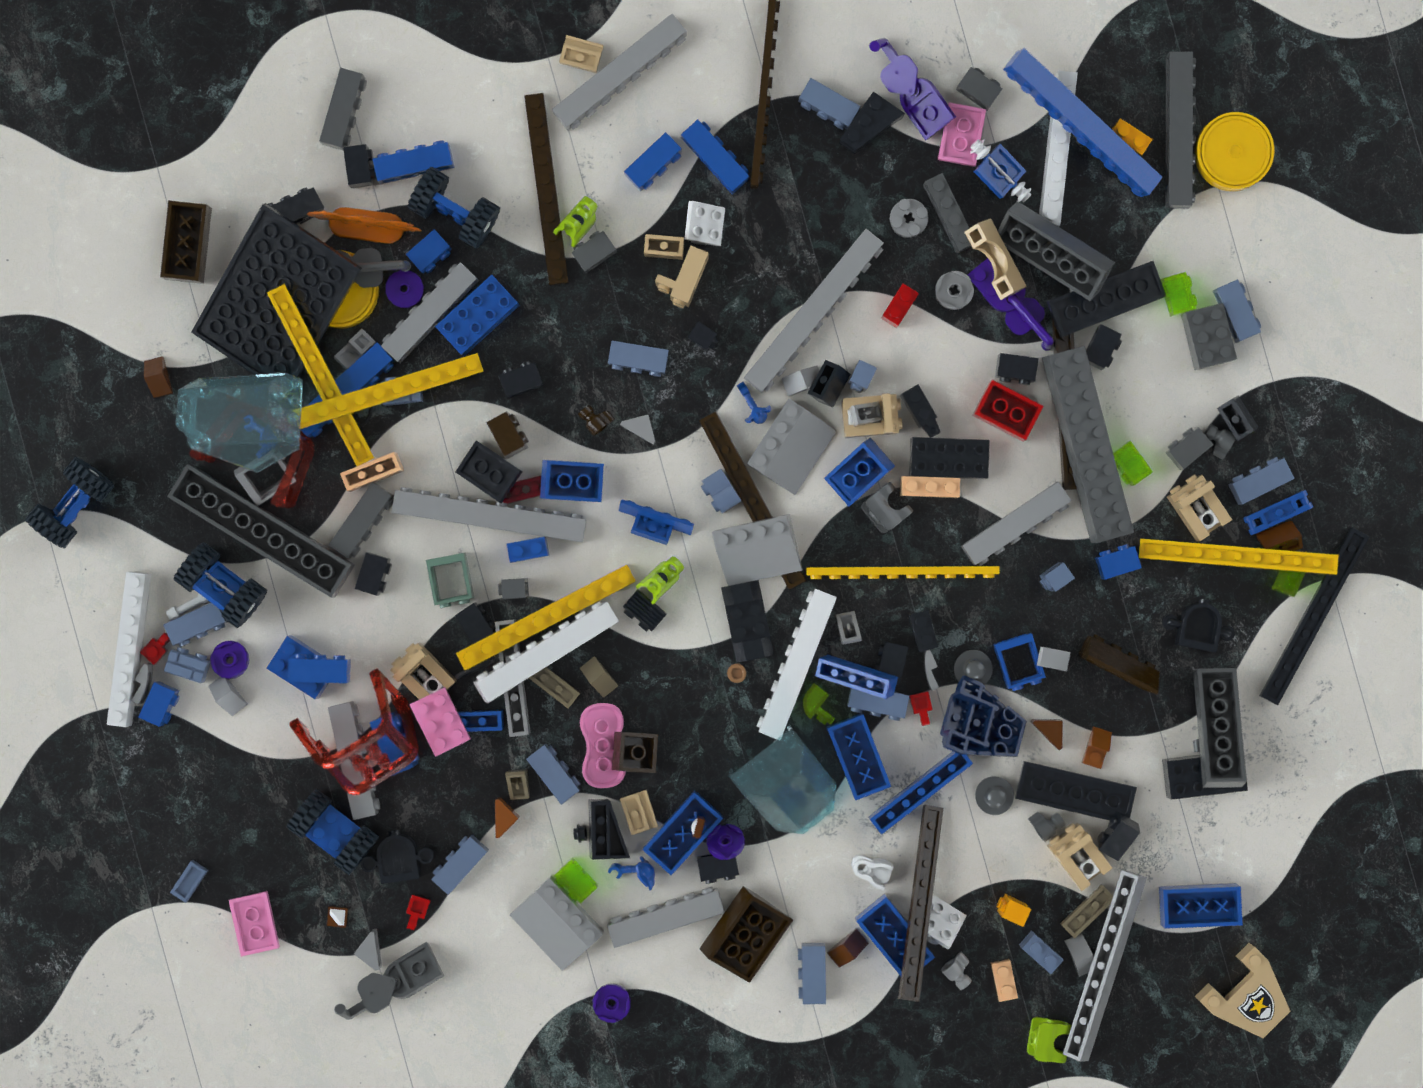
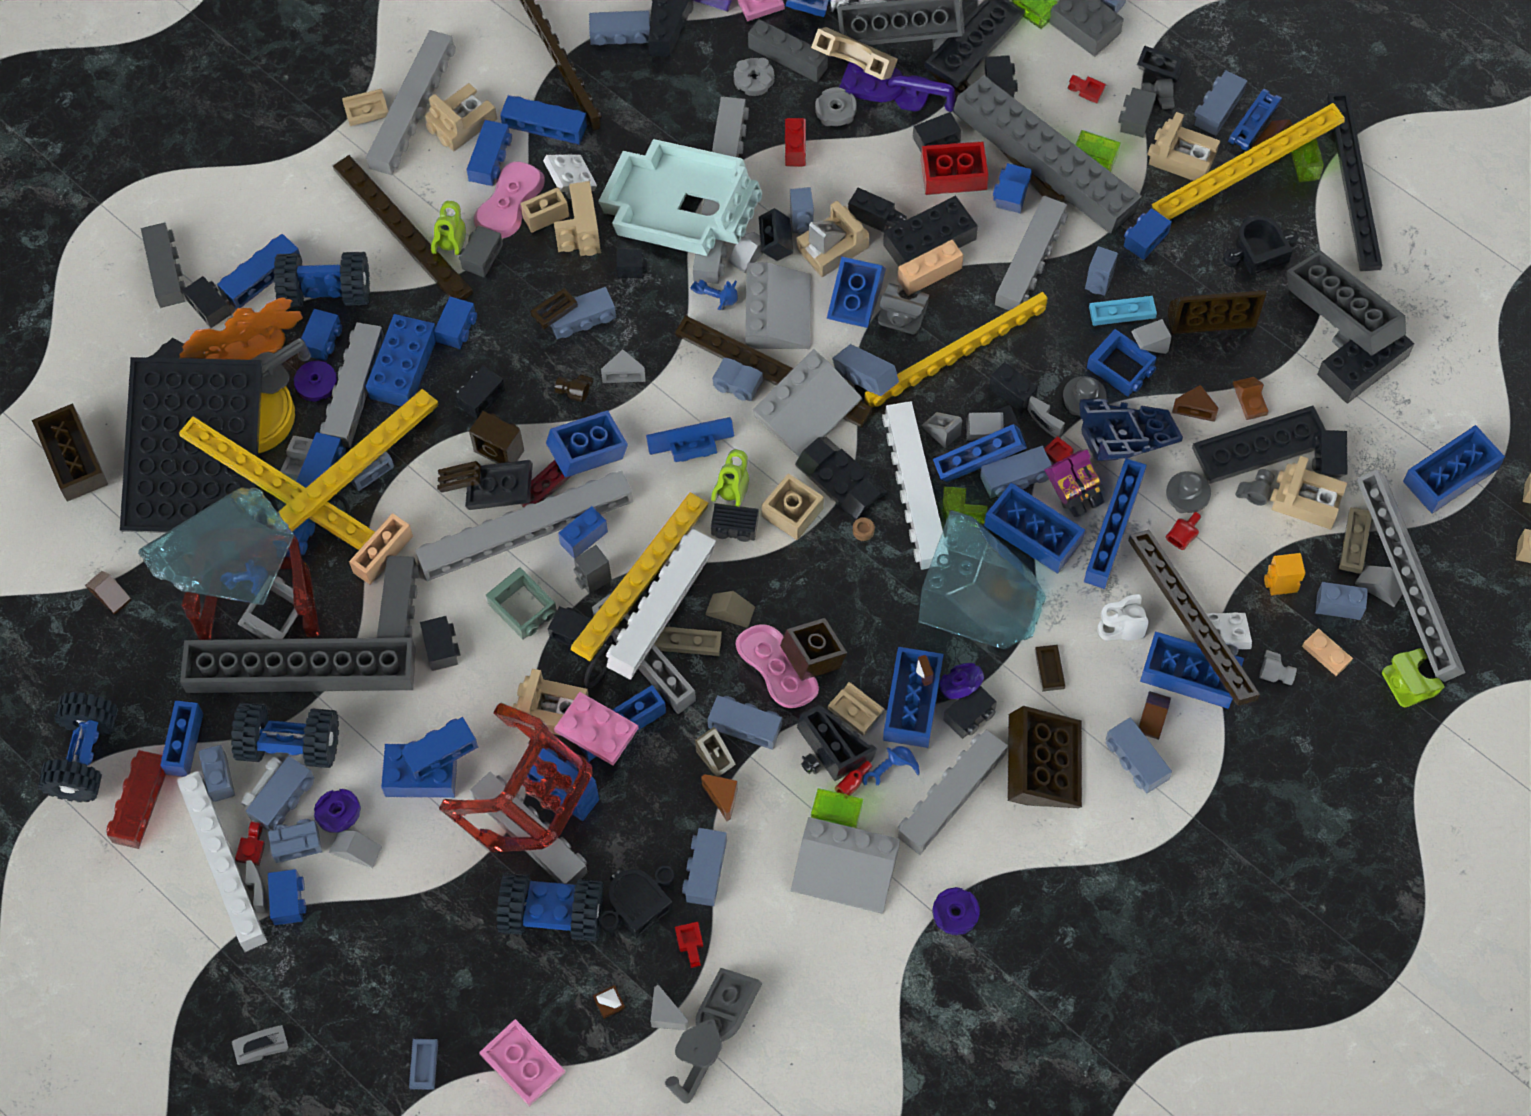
camera: 30 degrees left, 25 degrees down
(86, 800) = (259, 1044): none -> light grey slope
(95, 563) = (137, 800): none -> clear red brick
(148, 538) = (181, 738): none -> blue brick
(160, 579) = (216, 773): none -> sand blue brick
(452, 437) = (459, 472): none -> dark brown tile
(537, 306) = (455, 322): none -> blue brick
(600, 866) = (853, 779): none -> red piece
(616, 354) = (556, 311): none -> dark brown tile
(632, 106) = (458, 117): none -> tan brick
(656, 206) = (503, 209): none -> bright pink plate
(693, 627) = (792, 506): none -> tan brick
(757, 283) = (652, 187): none -> light aqua panel
(798, 866) = (1049, 668): none -> dark brown tile
(818, 550) = (865, 370): none -> sand blue brick
(876, 653) = (983, 424): none -> light grey slope
(914, 747) = (1075, 482): none -> hips
(969, 824) = (1183, 532): none -> red piece
(1036, 463) = (1012, 188): none -> blue brick
(1052, 616) = (1122, 310): none -> medium azure plate
(1166, 402) = (1089, 89): none -> red plate

